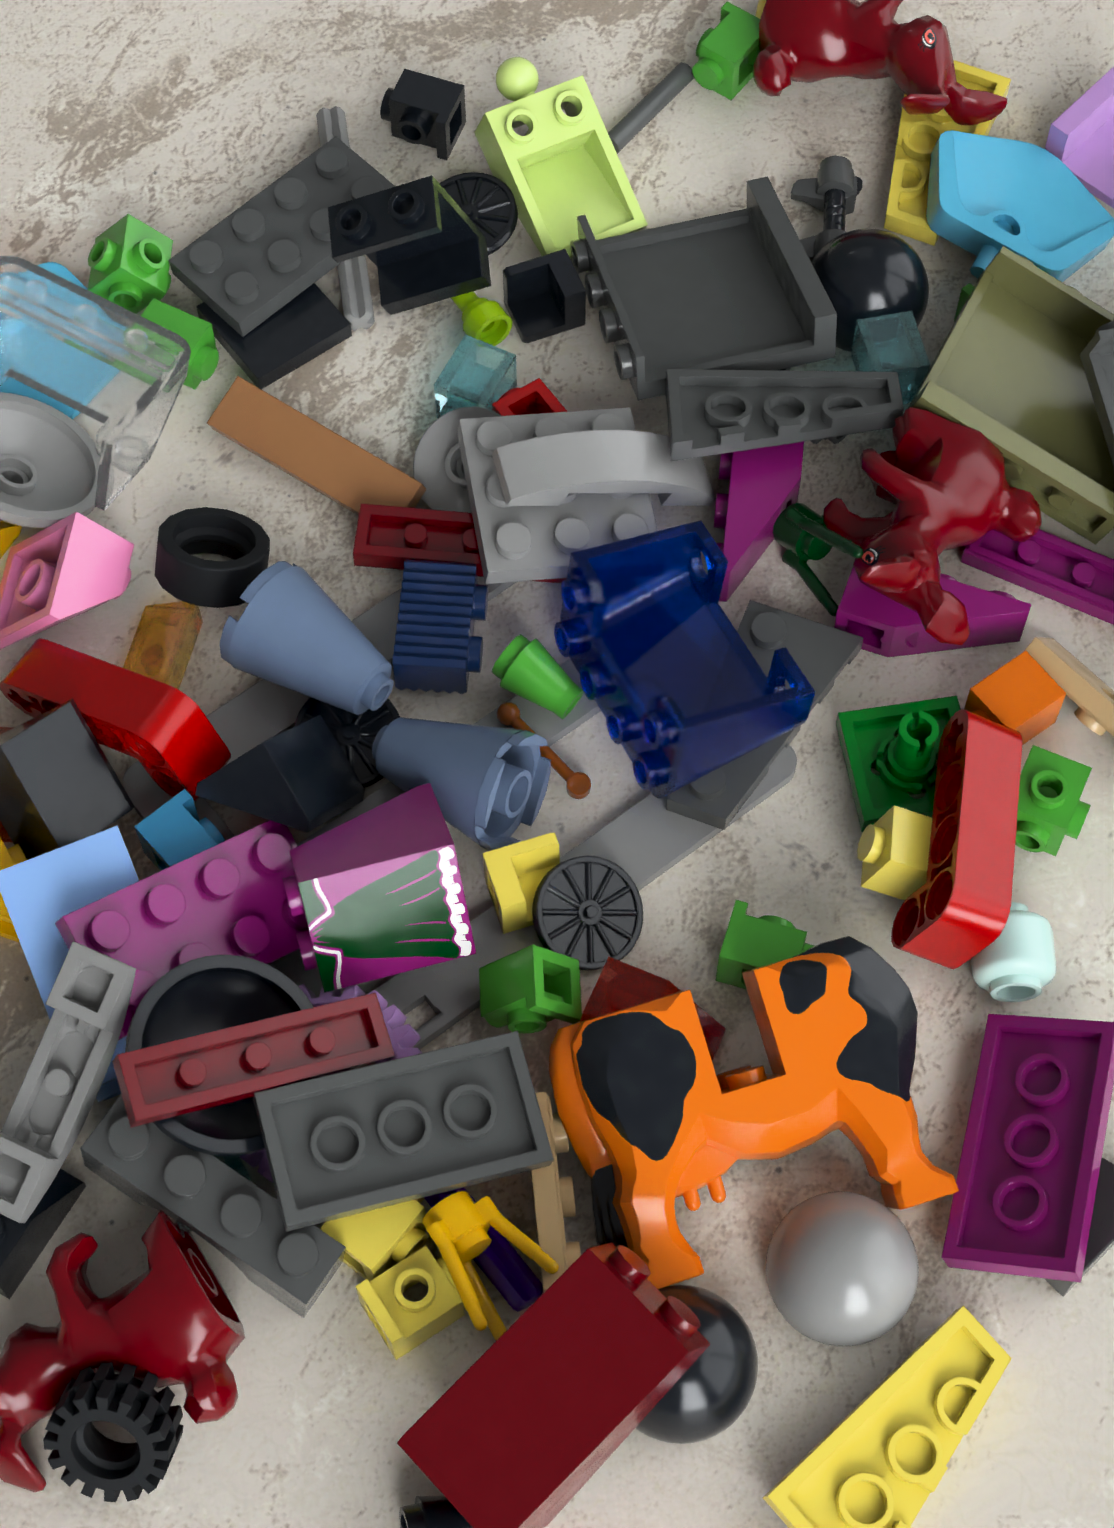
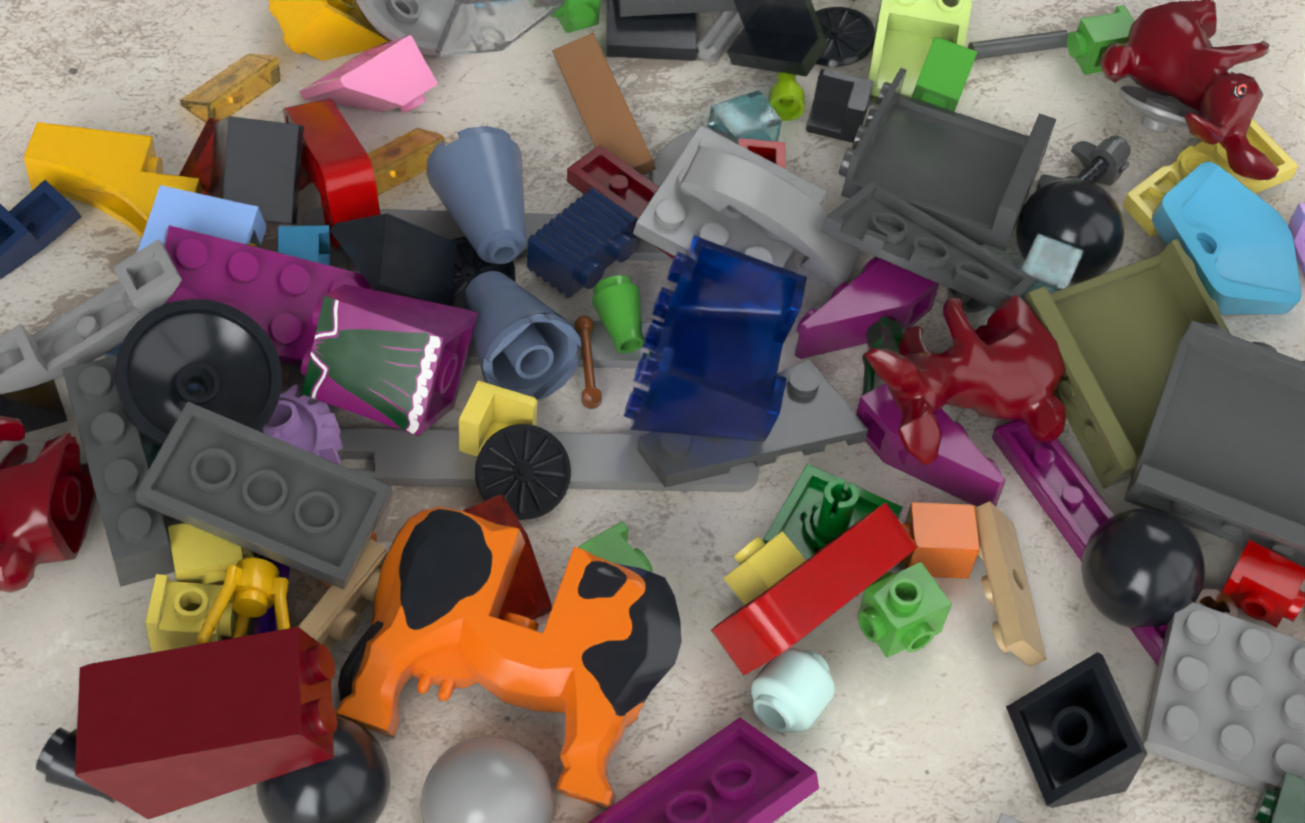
camera: 30 degrees right, 10 degrees down
(212, 532) = (472, 104): black tyre -> none
(251, 1059) = (202, 378): dark red plate -> none
(530, 990) = (423, 487): bright green brick -> none
(626, 196) = (944, 74): none -> bright green panel
(841, 97) = (1157, 109): none -> light grey dish

